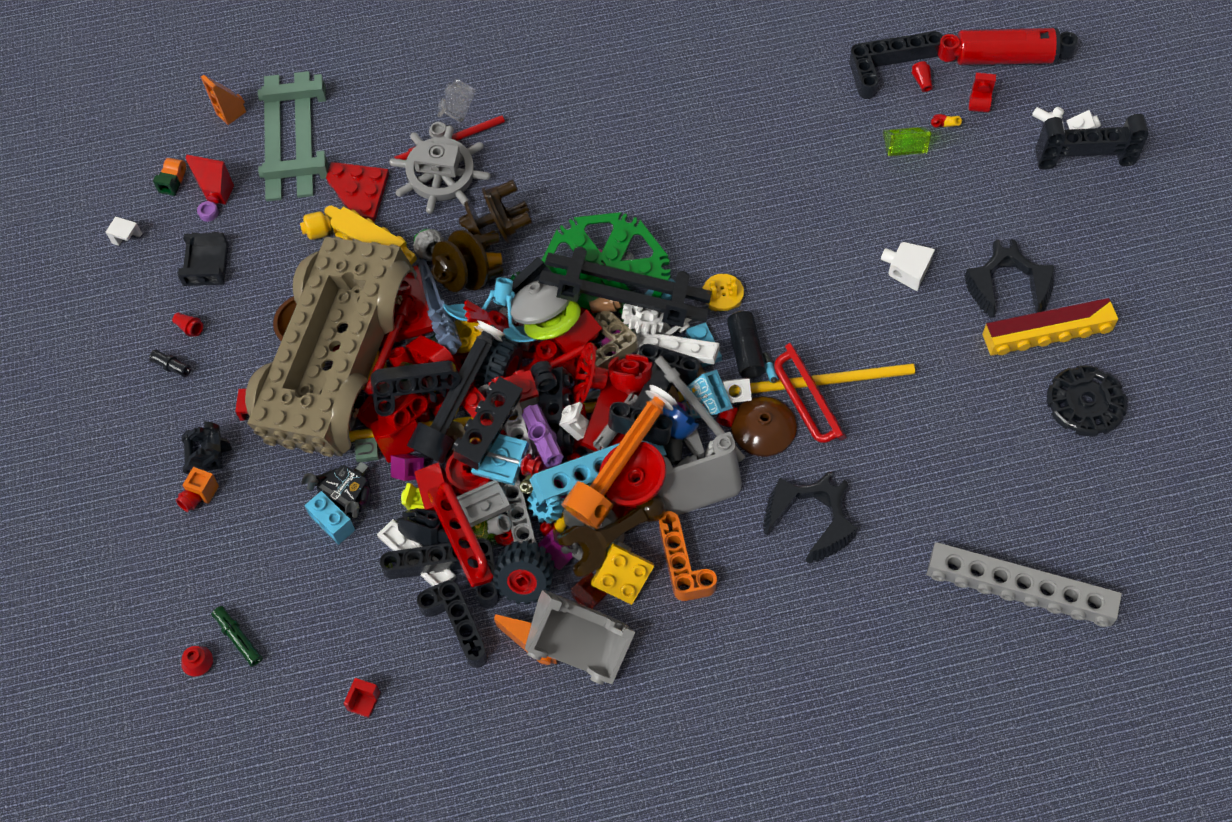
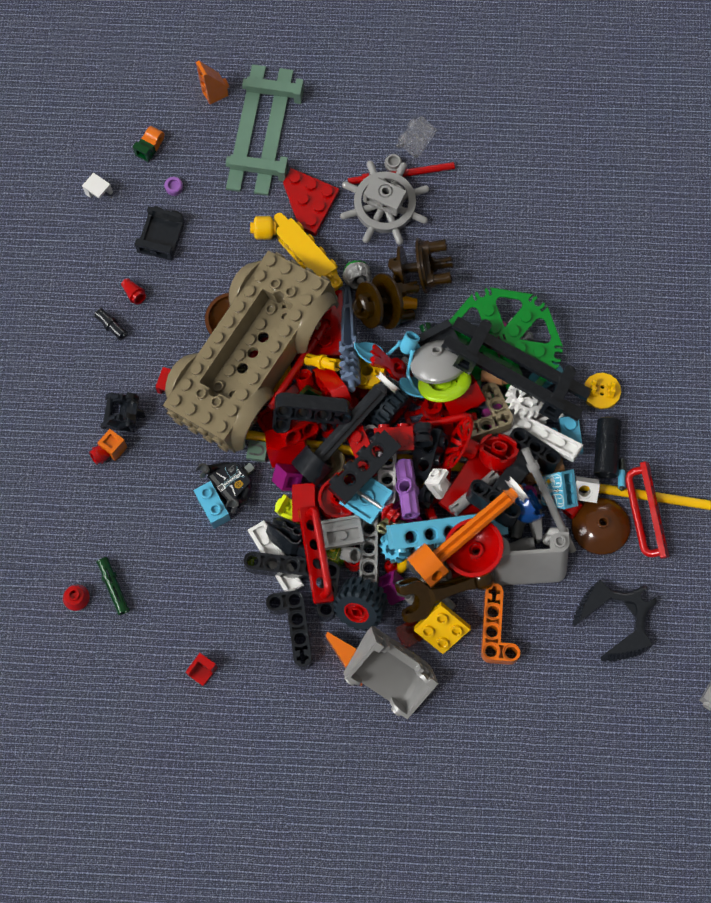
camera: 15 degrees right, 10 degrees up
(212, 178) = (184, 158): red slope -> none
(413, 333) = (322, 362): none -> yellow pin

